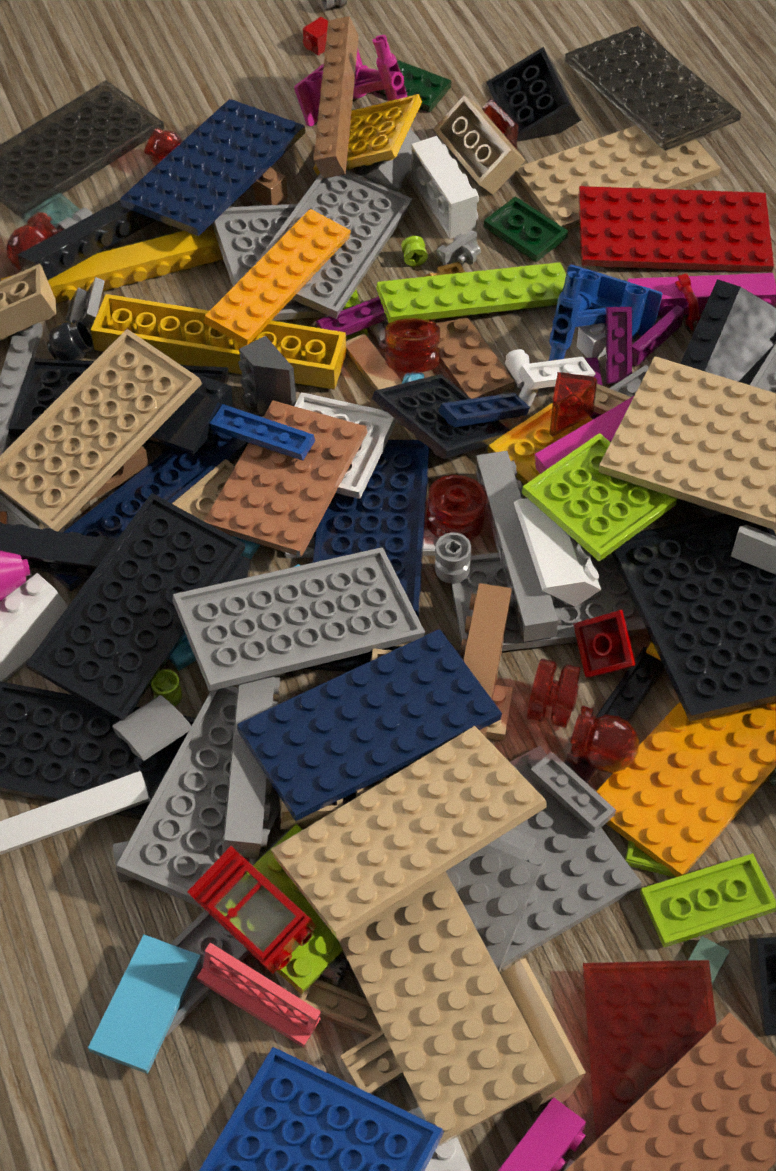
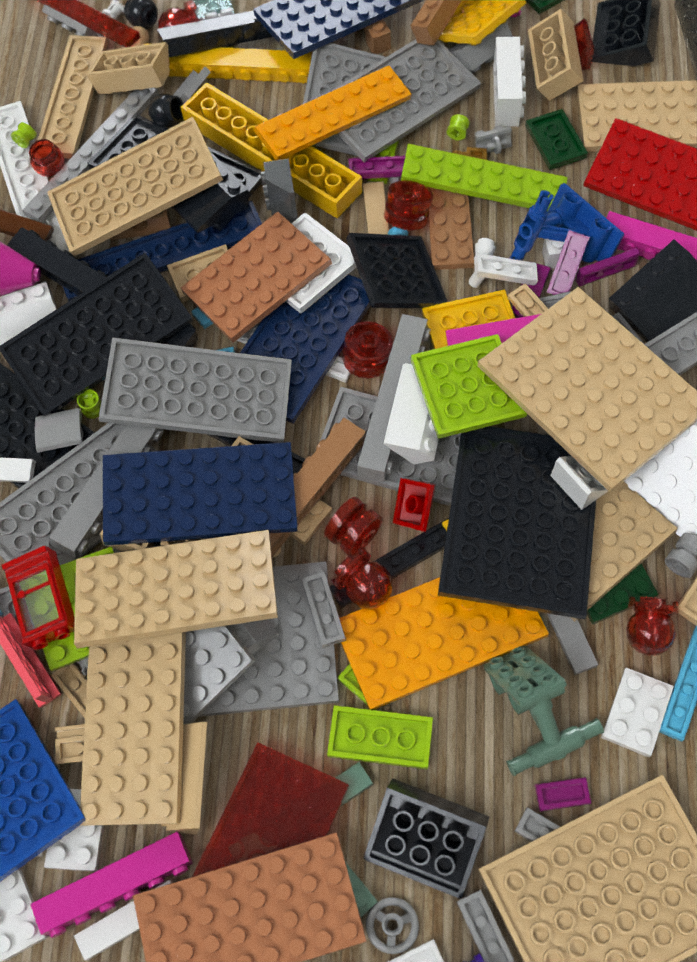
camera: 30 degrees right, 10 degrees up
(262, 432) = (252, 234): blue plate -> none
(452, 557) = (338, 388): light grey wheel -> none
(483, 409) = (431, 278): dark blue plate -> none
(572, 400) = (498, 297): clear red slope -> none
(684, 285) = (649, 234): red arm -> none

